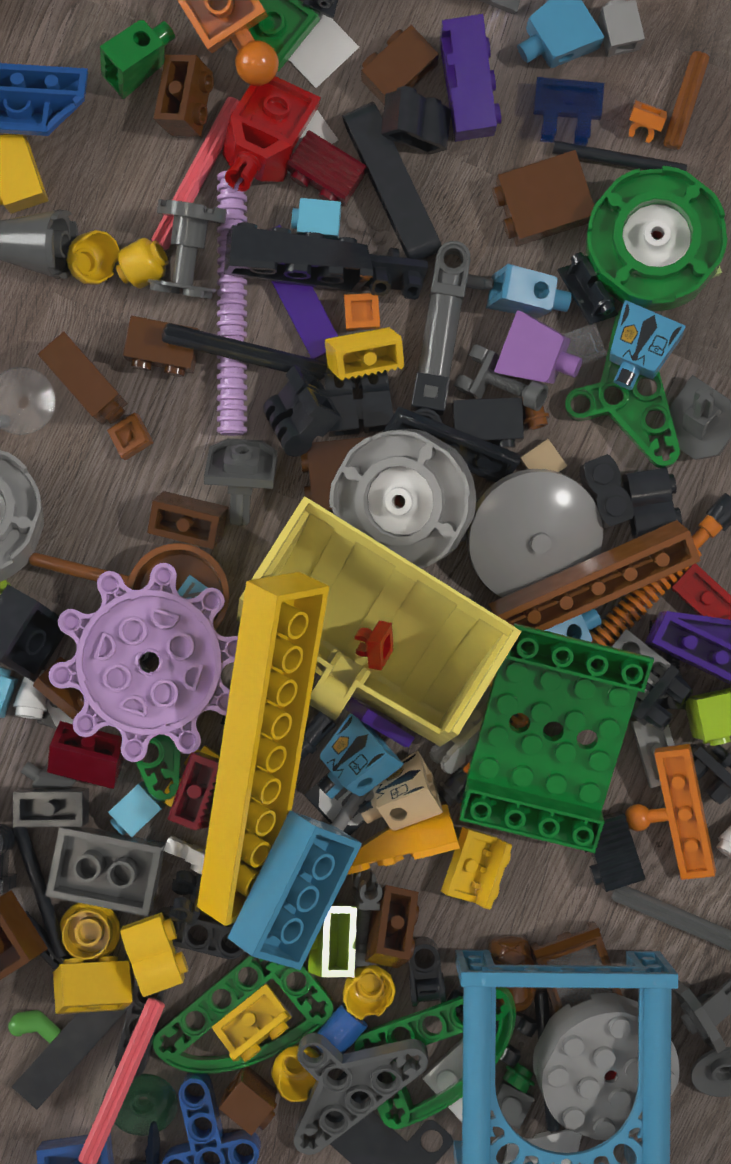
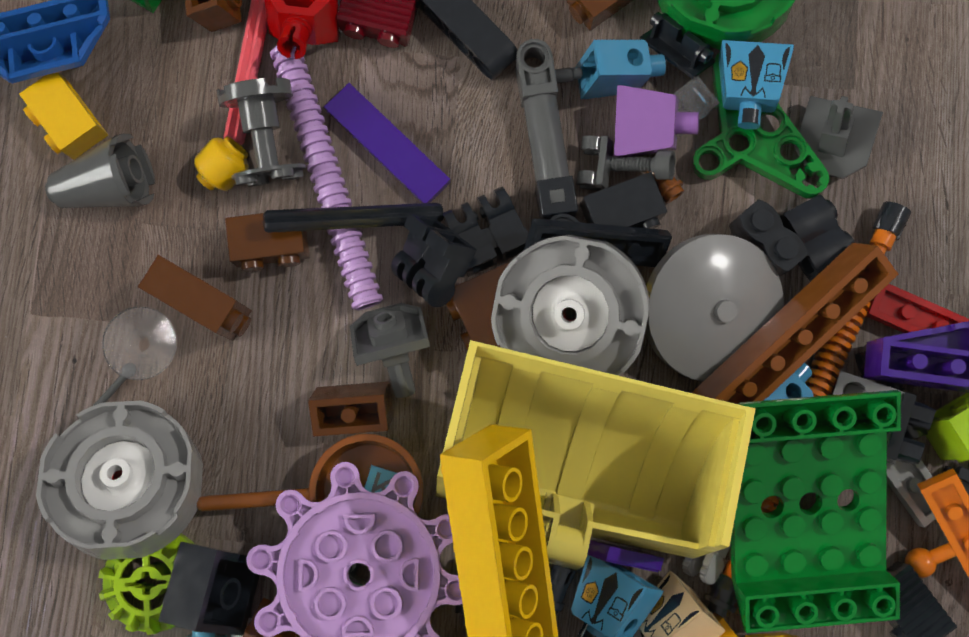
camera: 20 degrees left, 5 degrees down
(92, 257) = (168, 173): yellow hair -> none
(130, 436) = (264, 342): dark orange tile -> none
(297, 258) = (377, 107): black wedge -> none
(317, 217) = (385, 65): medium azure brick -> none
(361, 311) = (460, 139): orange tile -> none
(364, 353) = (477, 179): yellow brick -> none
(377, 644) = (592, 474): red tile -> none
(397, 274) = (480, 91): black hips -> none
(544, 457) = (691, 225): tan tile -> none

